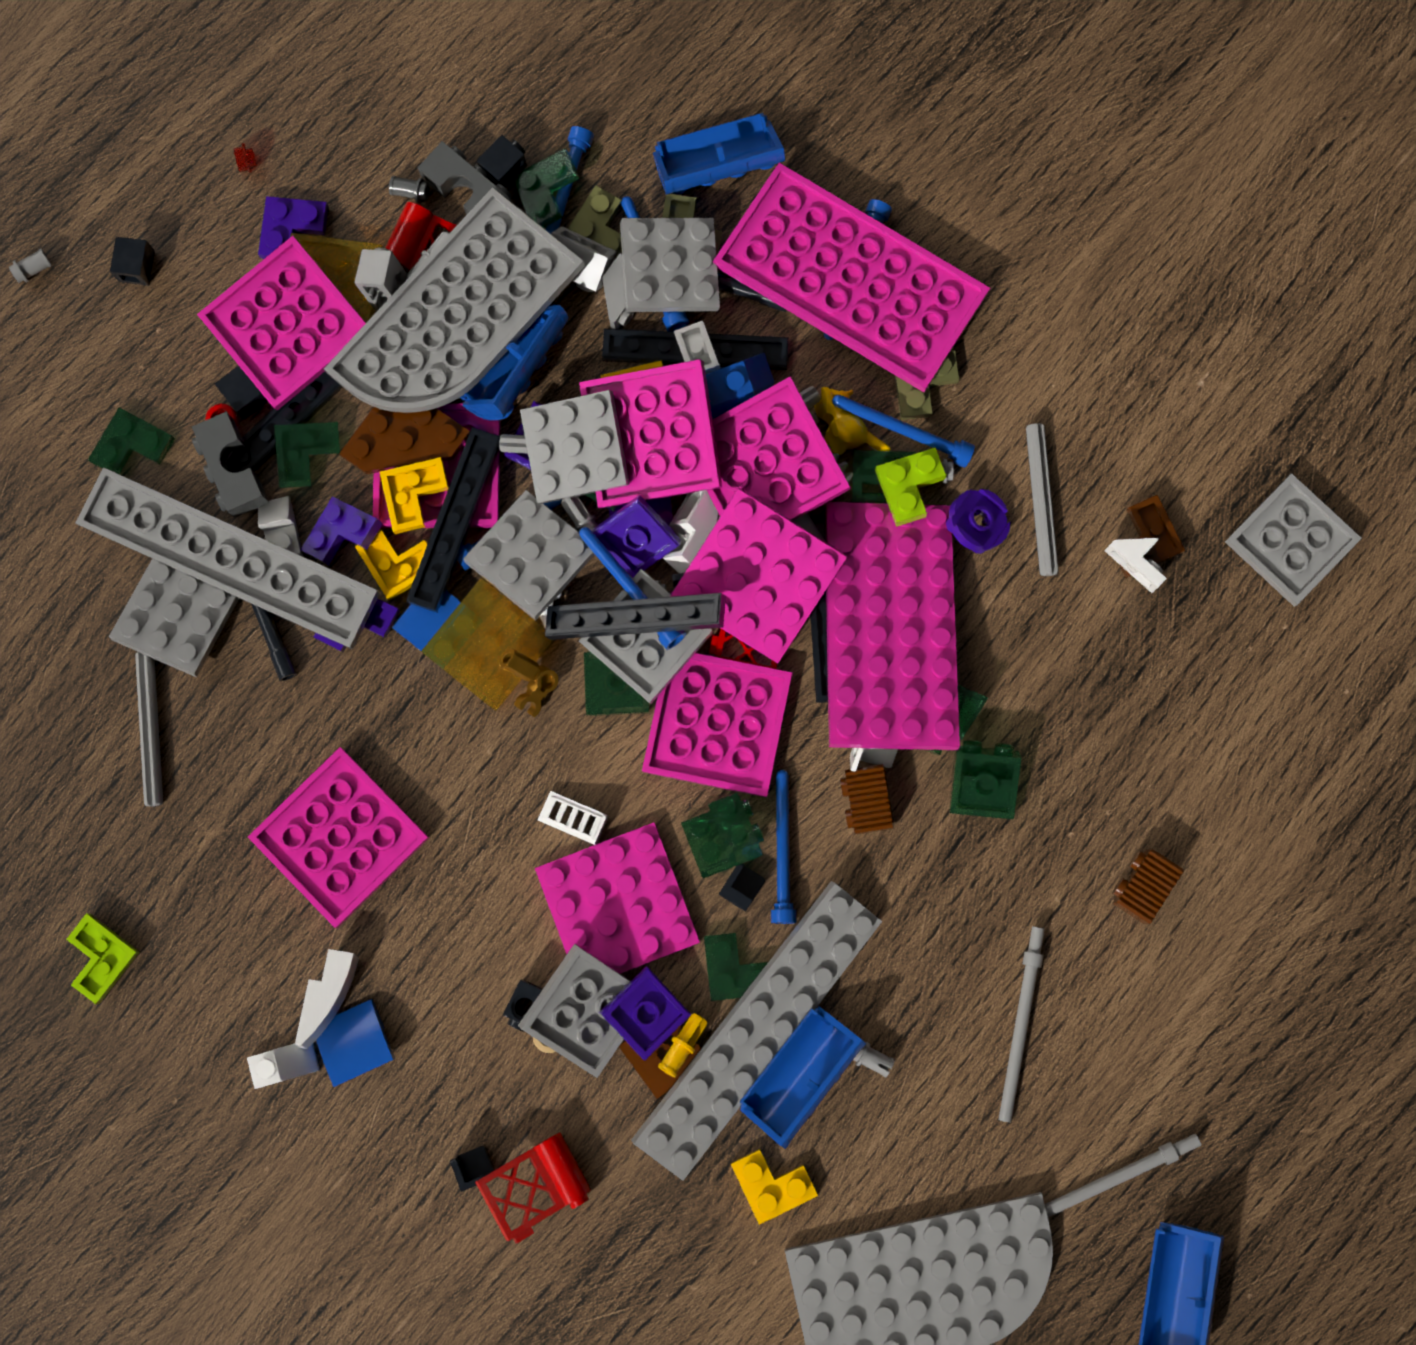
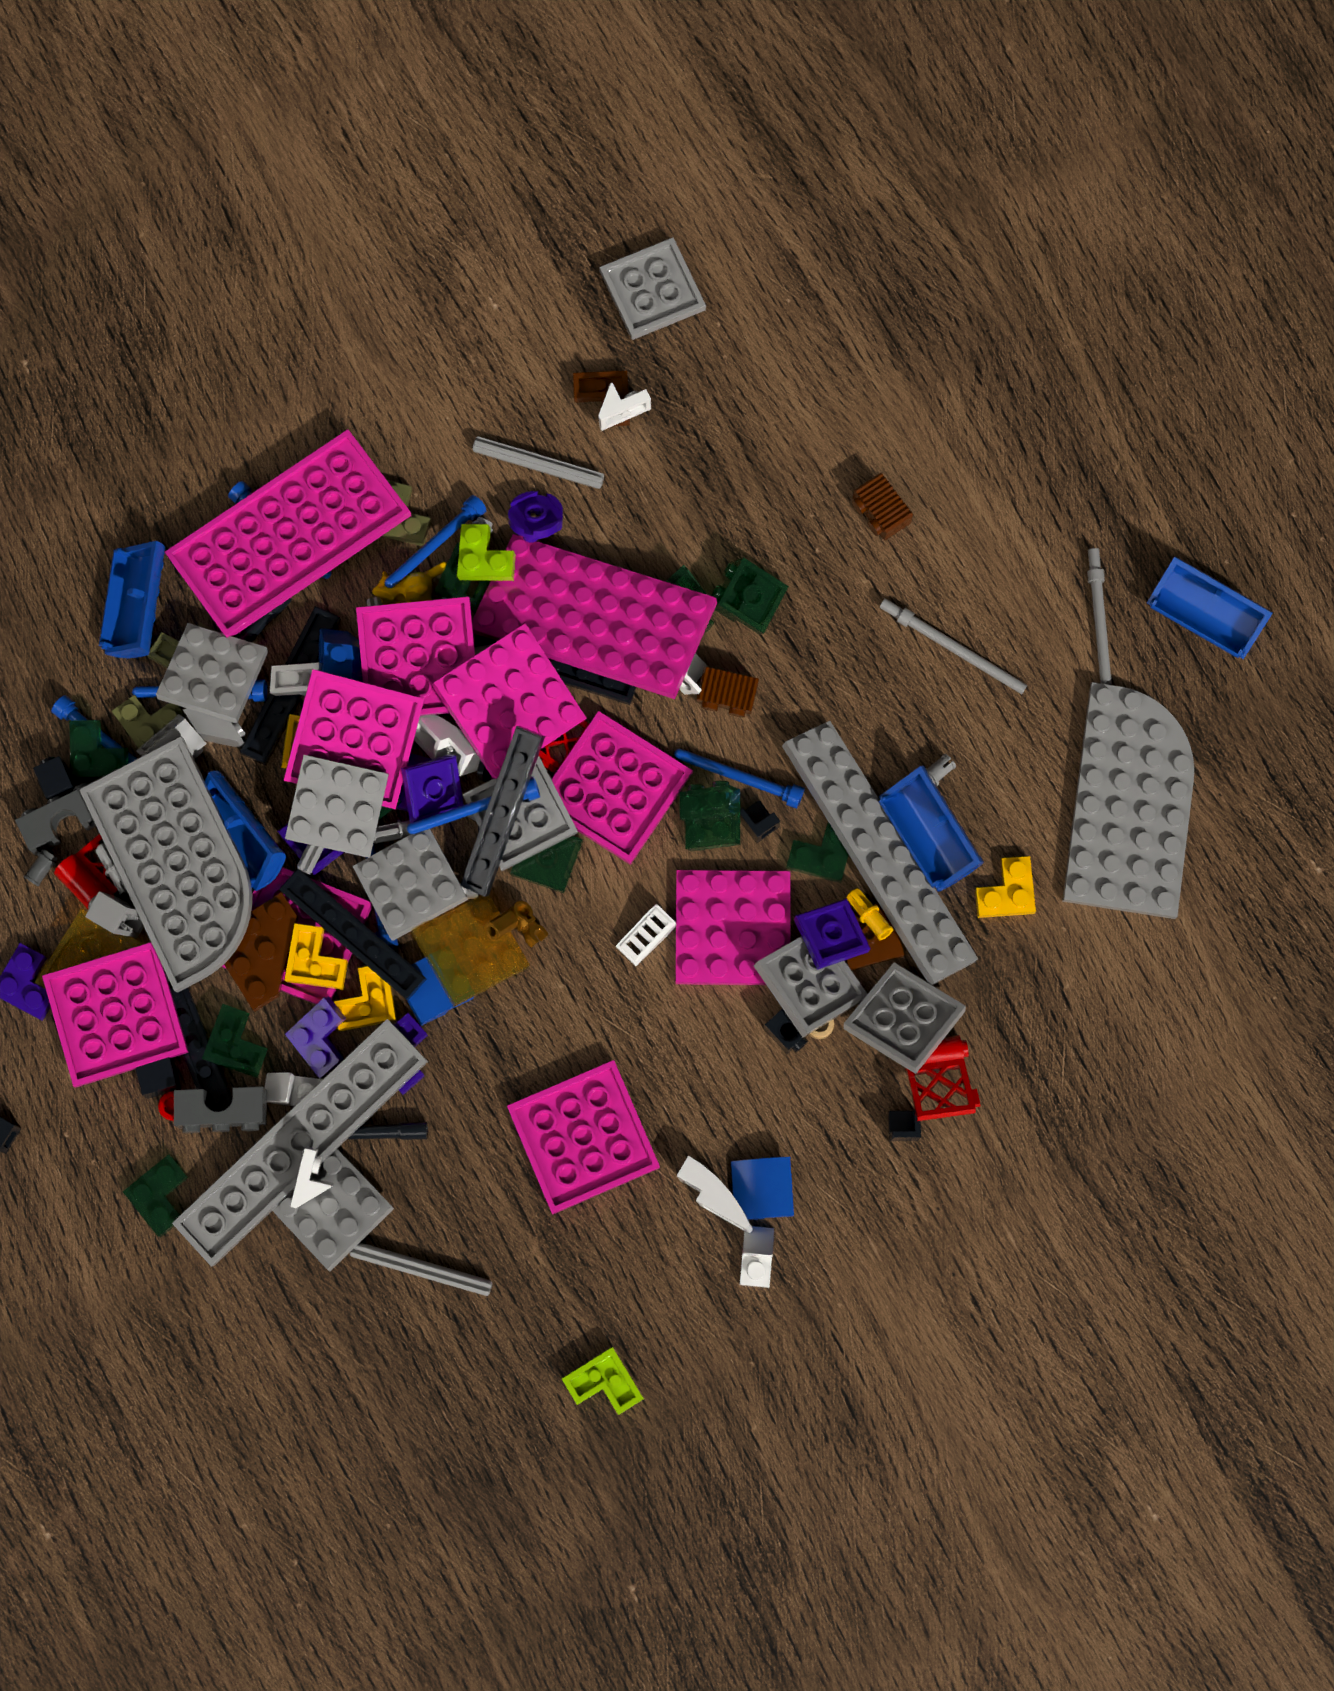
camera: 75 degrees left, 5 degrees down
(182, 582) = (306, 1186): none -> white slope
(583, 1126) = (904, 1017): none -> light grey plate

